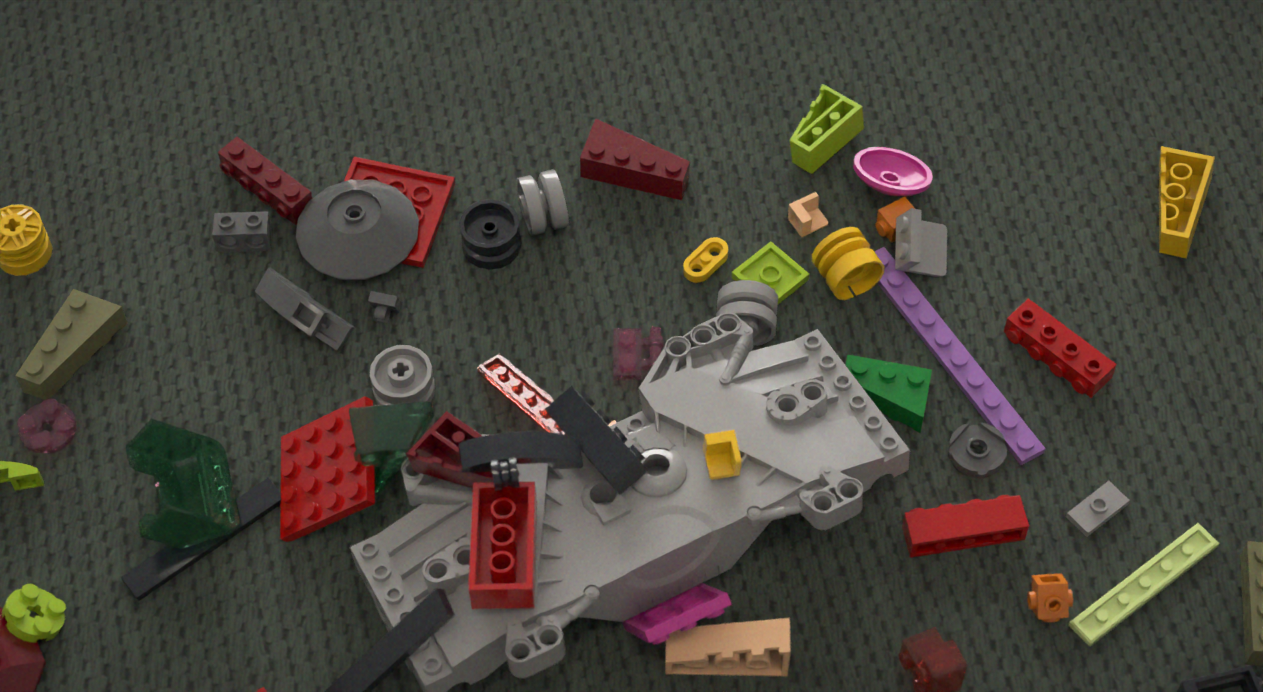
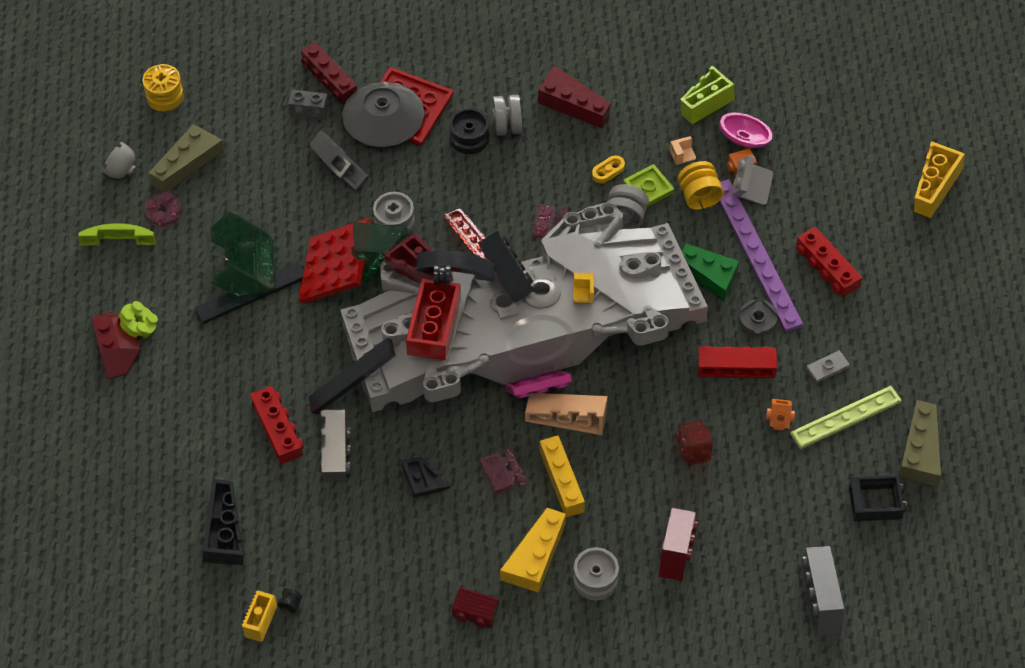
camera: 10 degrees right, 0 degrees up
(384, 305) = (391, 165): dark grey tile -> none

